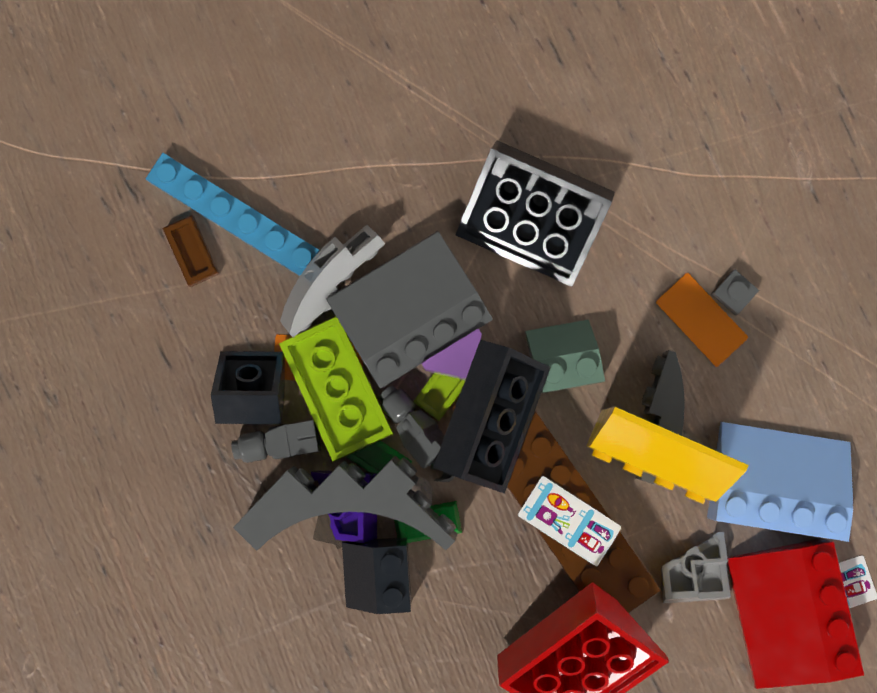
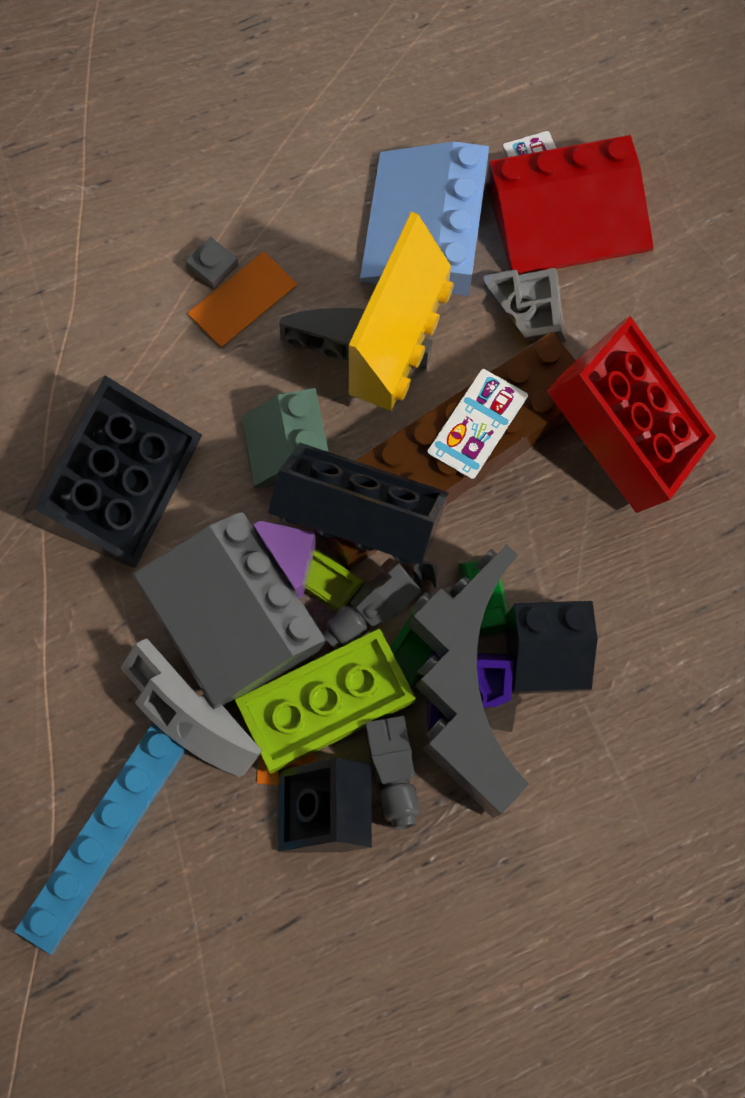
camera: 95 degrees left, 15 degrees down
(190, 251) = (146, 893): reddish brown tile -> none

